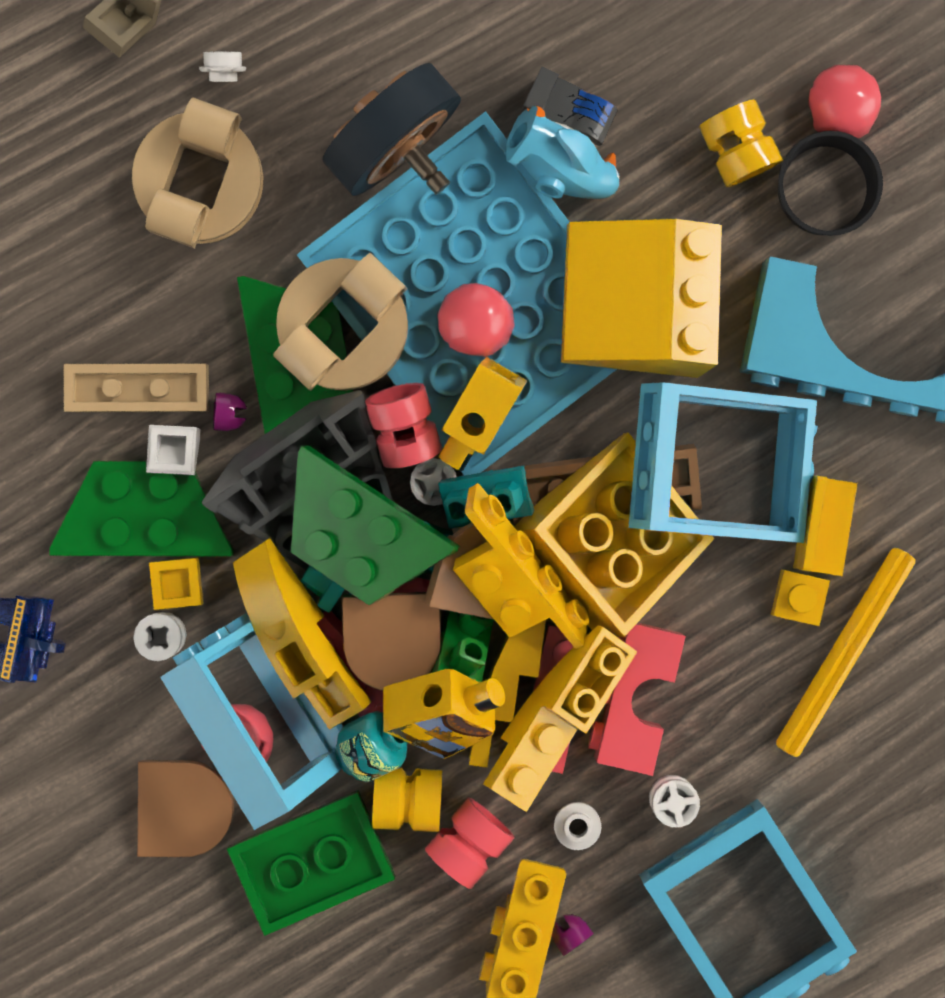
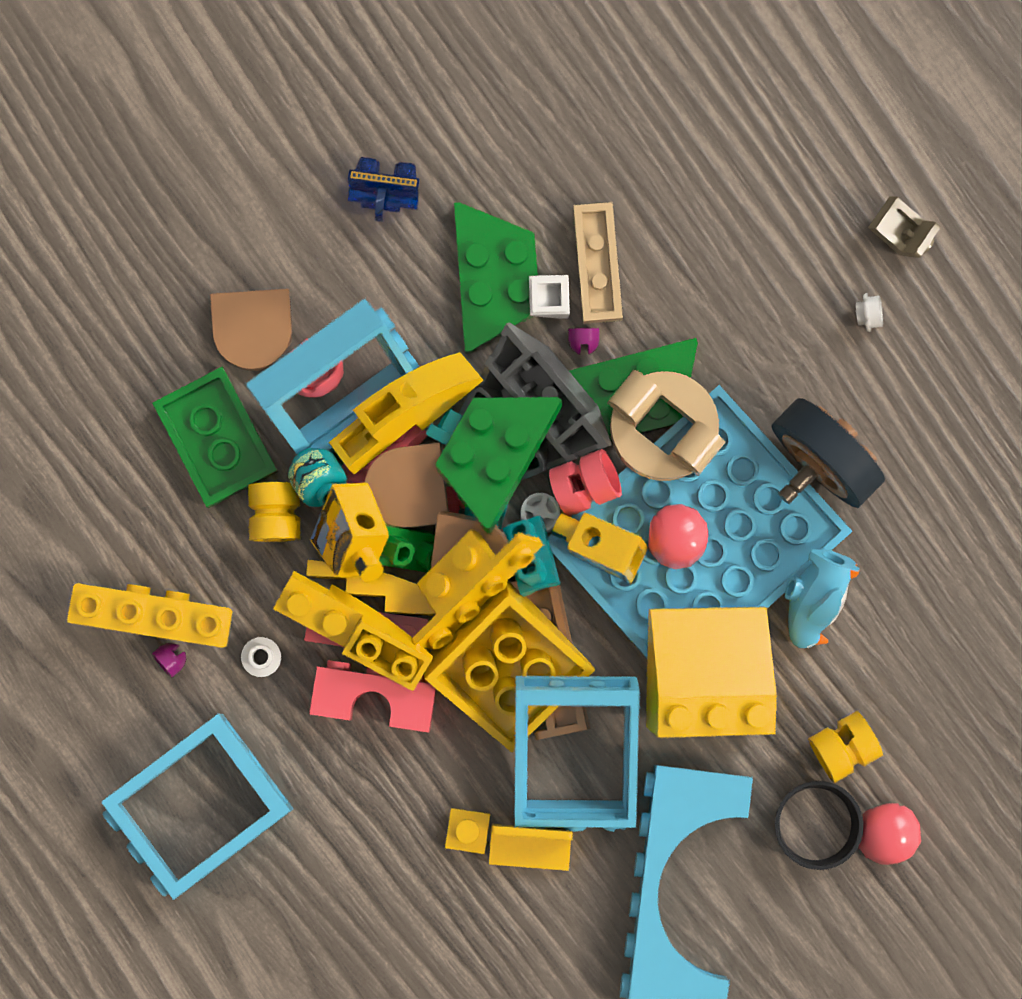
camera: 80 degrees right, 5 degrees down
(166, 630) = (399, 303): white wheel -> none
(176, 583) = (439, 308): yellow plate -> none
(212, 133) = (784, 264): tan piece -> none
(469, 843) = (241, 566): coral wheel -> none
(571, 106) = (862, 601): dark grey leg -> none
(676, 810) = (281, 738): white wheel -> none
(845, 652) = (424, 873): yellow axle -> none

